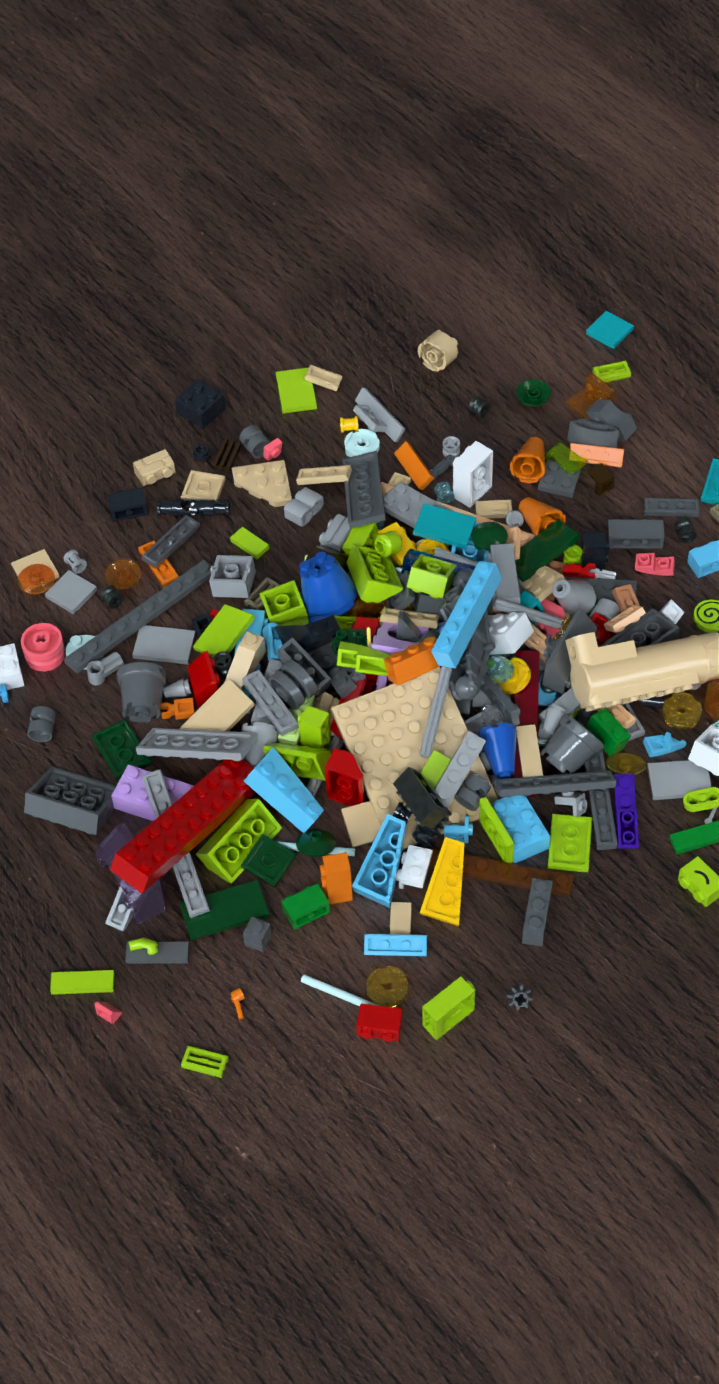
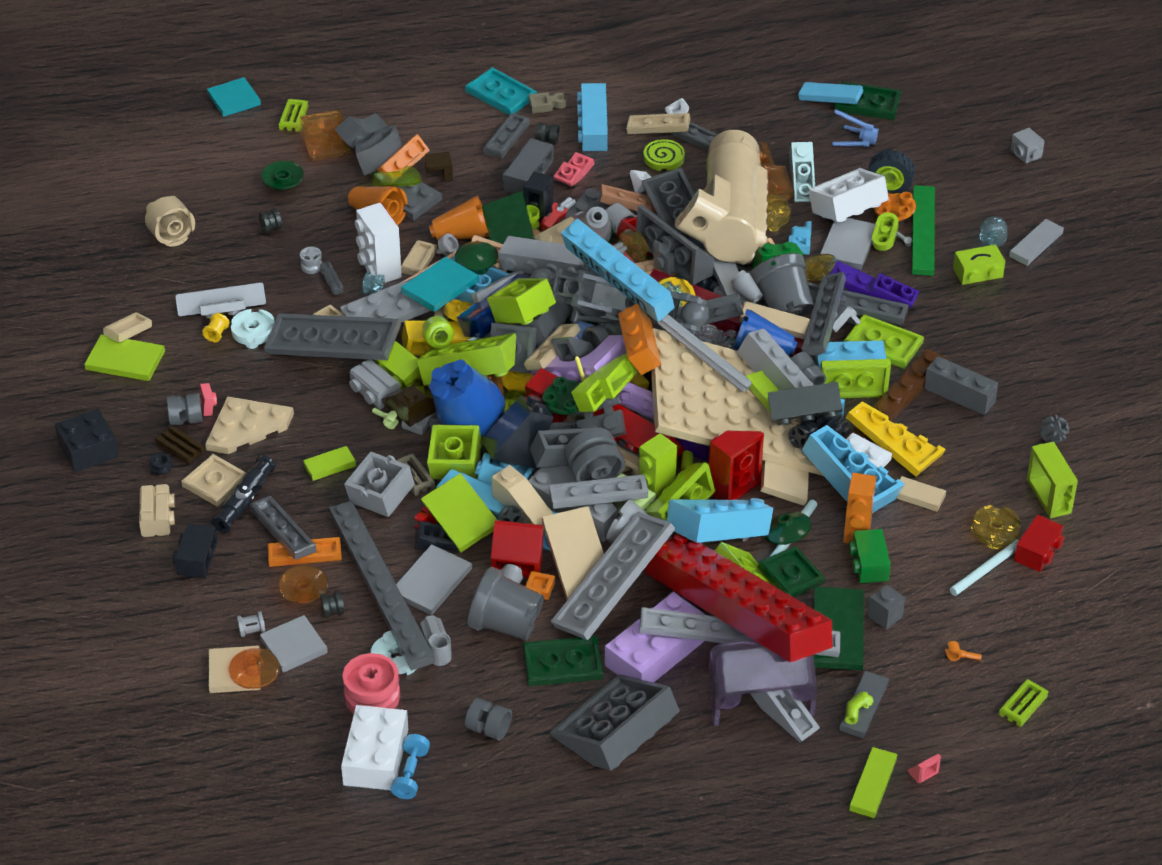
camera: 70 degrees left, 10 degrees down
(303, 506) = (312, 399): light grey brick -> none
(324, 475) = (279, 367): tan tile -> none
(395, 944) = (948, 504): medium azure tile -> none
(414, 465) = (316, 295): orange tile -> none
(626, 617) = (645, 195): light nougat plate -> none

